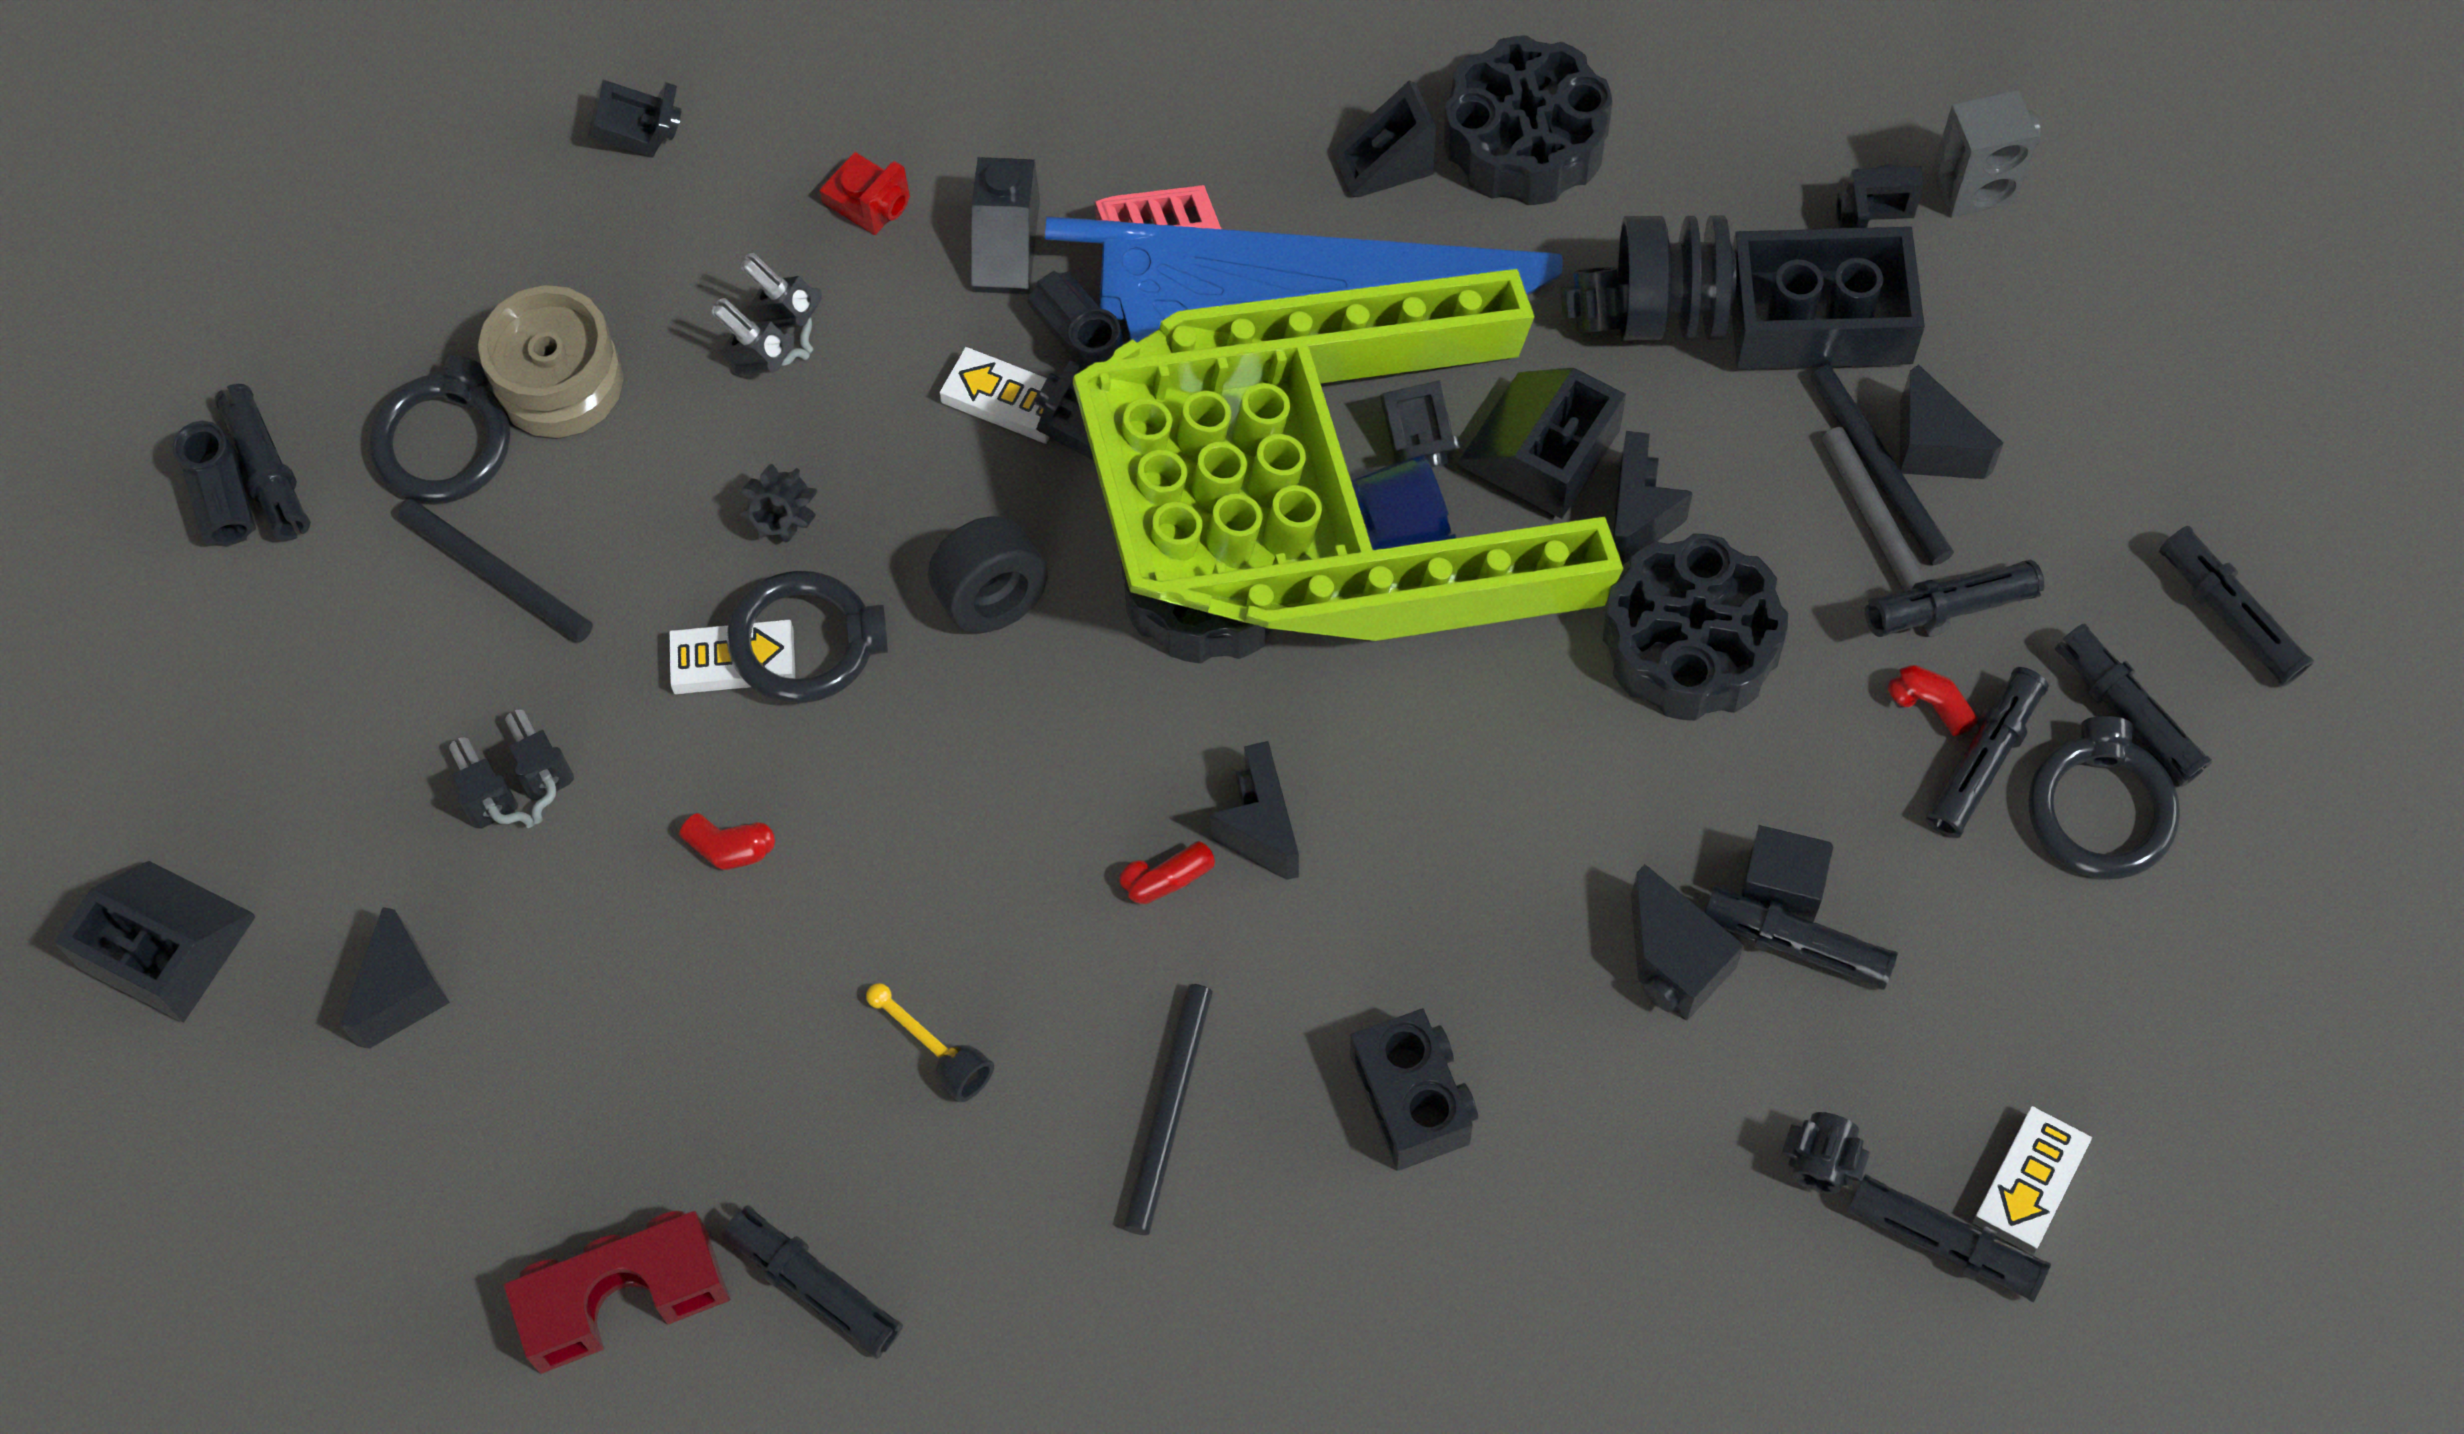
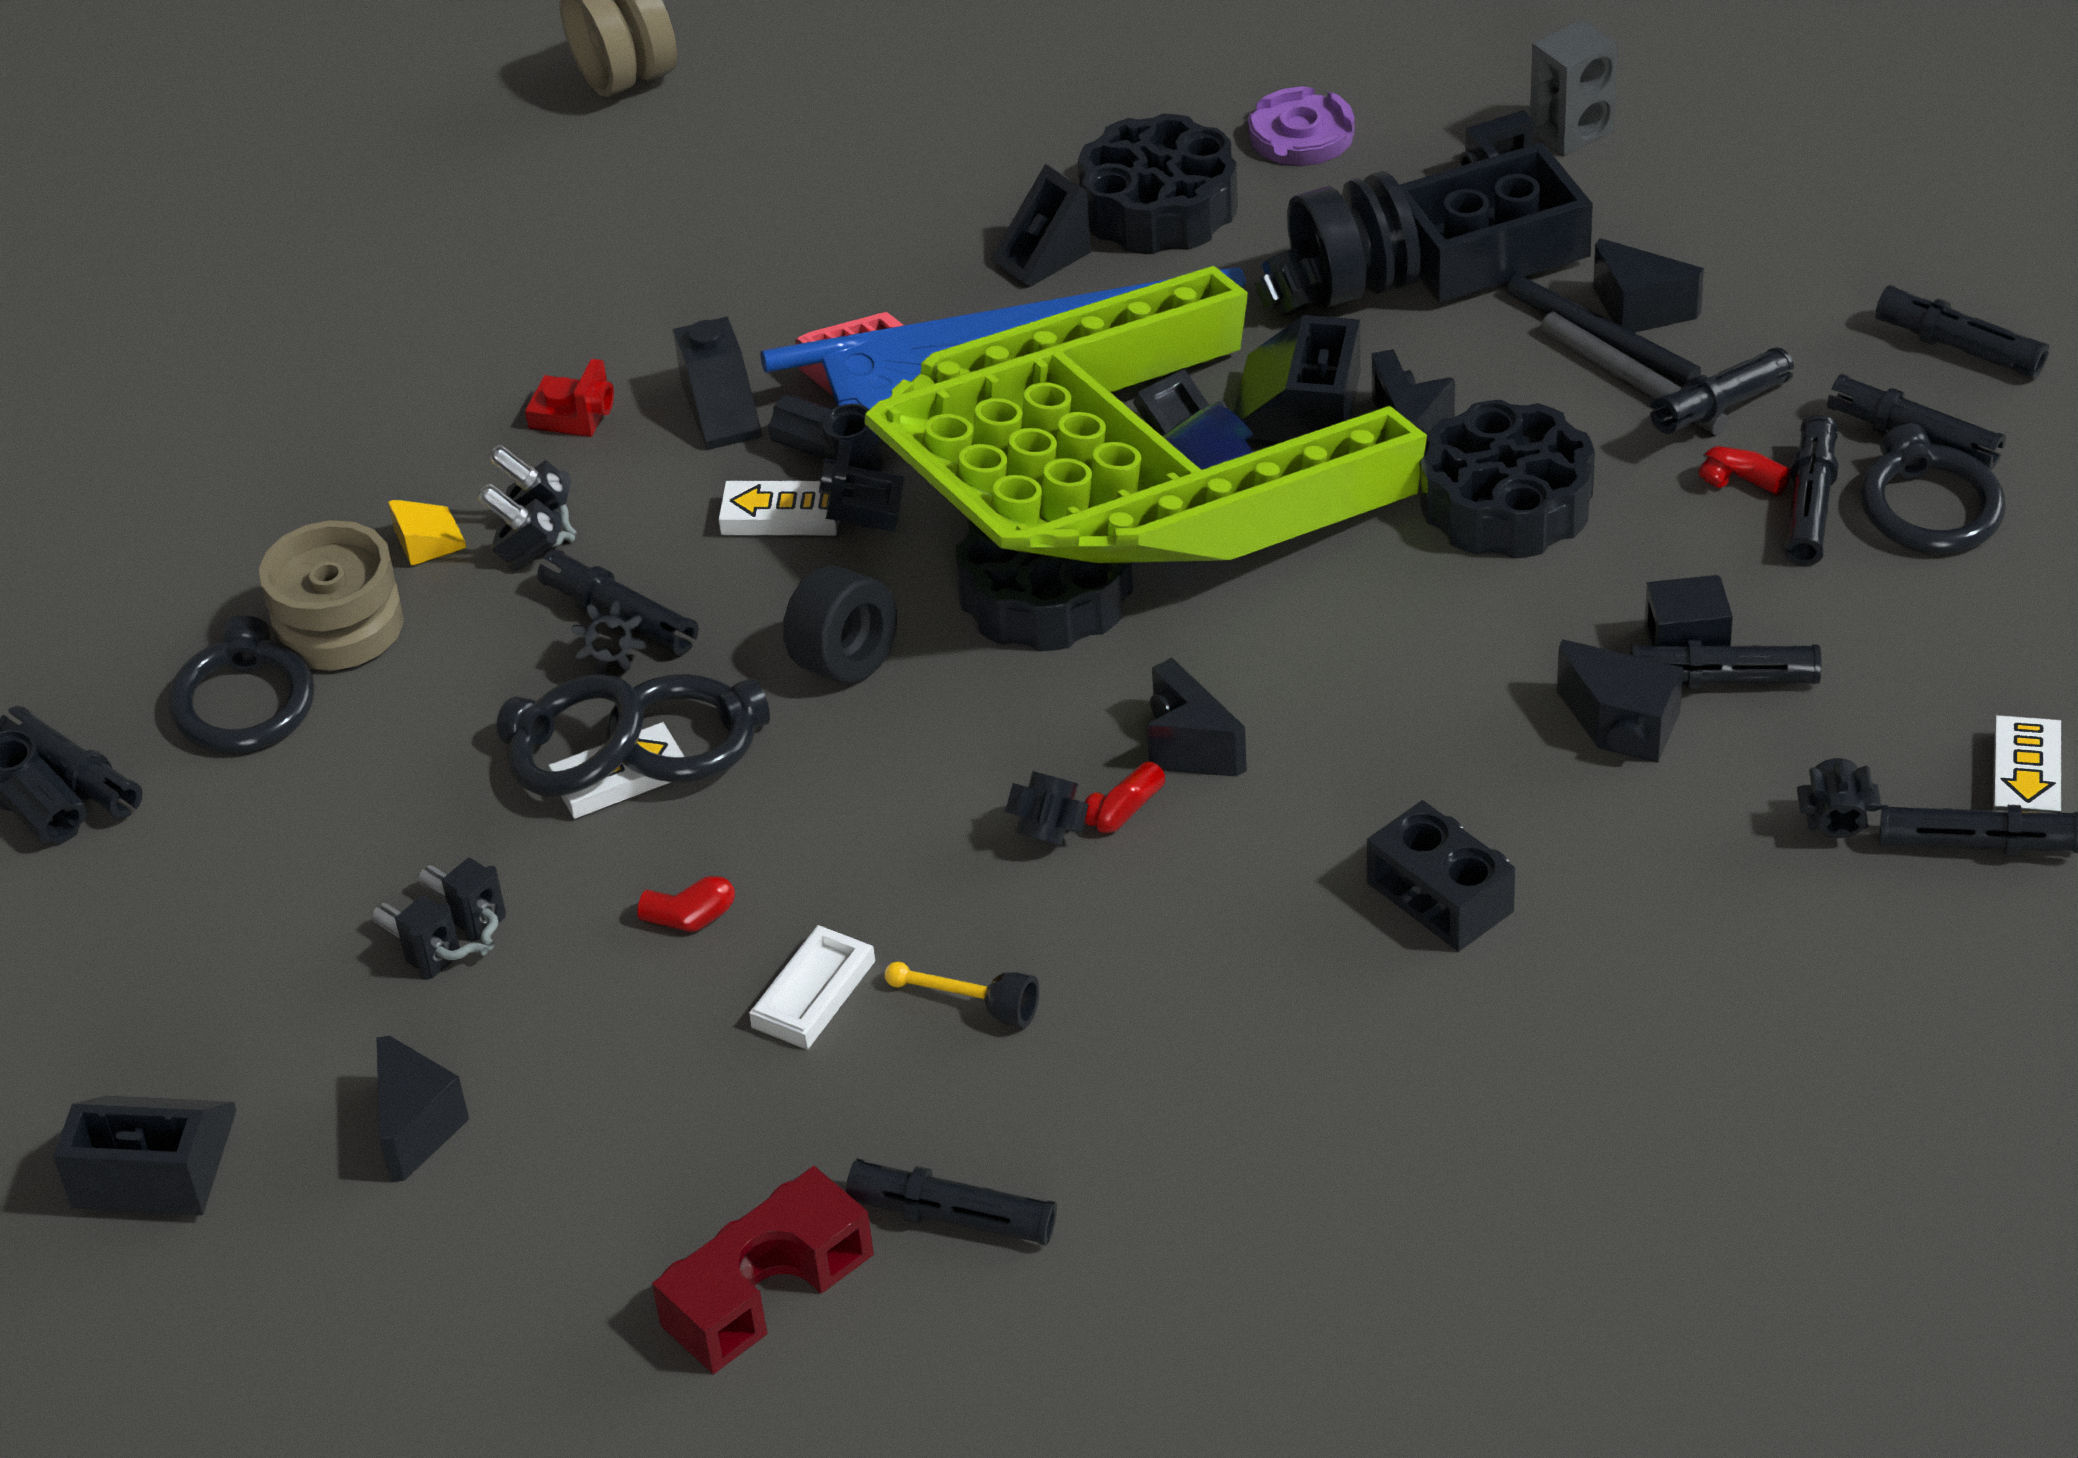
camera: 20 degrees left, 20 degrees down
(495, 570) = (347, 777): black bar -> none
(634, 118) = (318, 410): black bracket -> none
(671, 578) = (532, 722): none -> black piece
(675, 300) = (425, 530): none -> yellow slope
(797, 439) = (599, 587): none -> black pin
(799, 979) = (812, 987): none -> white tile
(1084, 866) = (1046, 807): none -> black gear
(1168, 1110) = (1222, 971): black bar -> none
(1705, 88) = (1301, 127): none -> medium lavender tile

